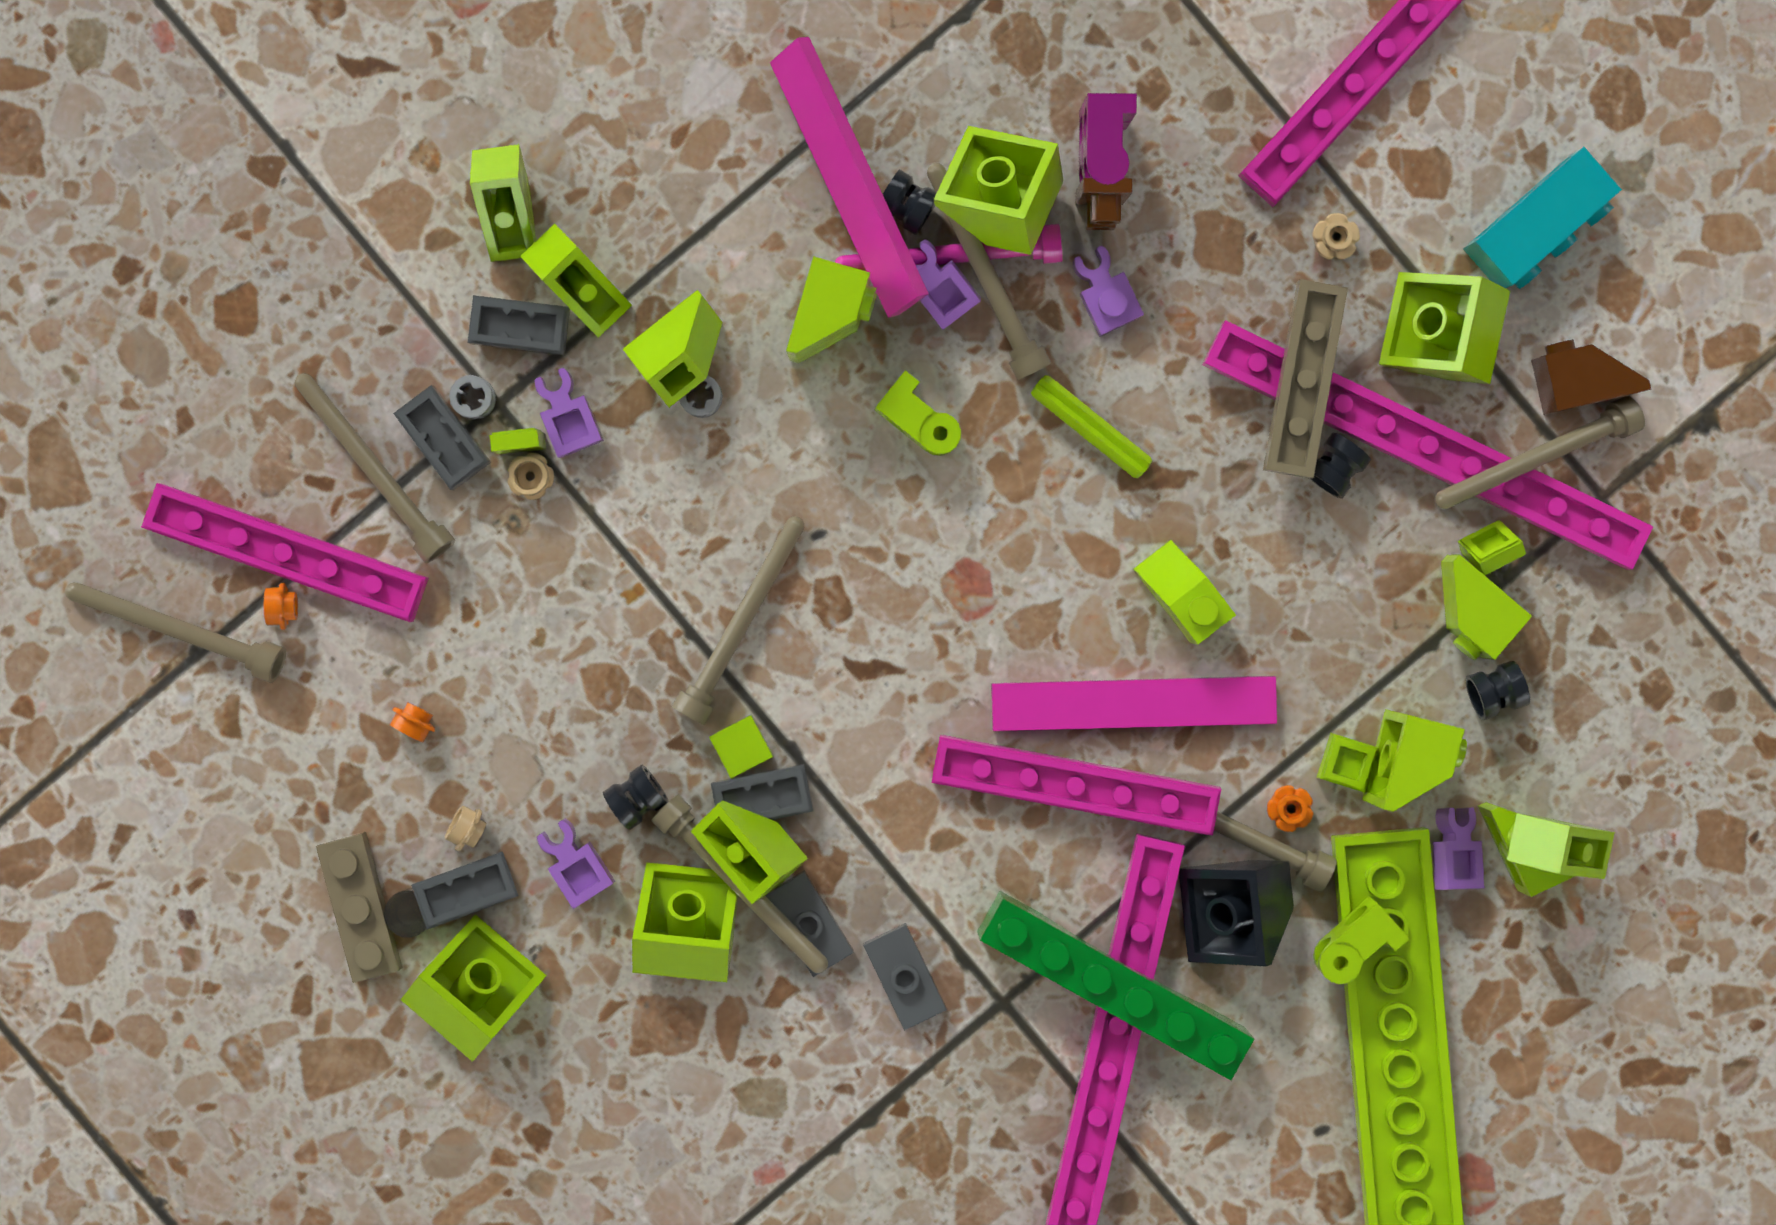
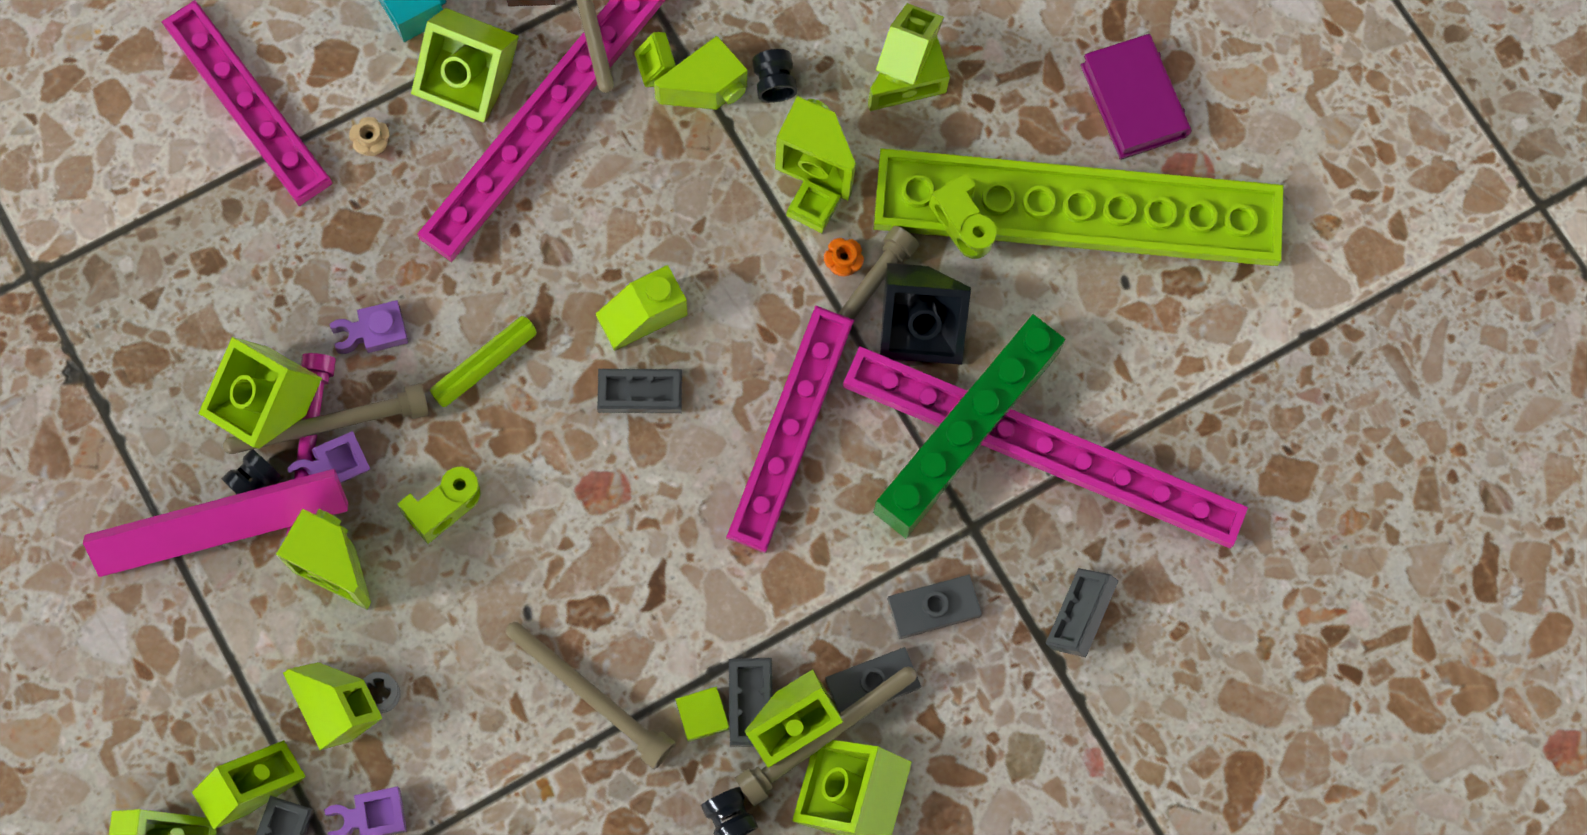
camera: 85 degrees left, 15 degrees down
(926, 1139) = (1082, 612): none -> dark grey plate
(1088, 609) = (639, 391): none -> dark grey plate
(1103, 158) = (254, 304): magenta hips -> none
(1134, 703) = (729, 371): dark pink tile -> none
(1305, 379) = (481, 176): dark tan plate -> none
(1339, 464) = (560, 167): black wheel -> none
(1457, 858) = (907, 132): medium lavender plate -> none
(1551, 1112) = (1135, 96): none -> magenta piece

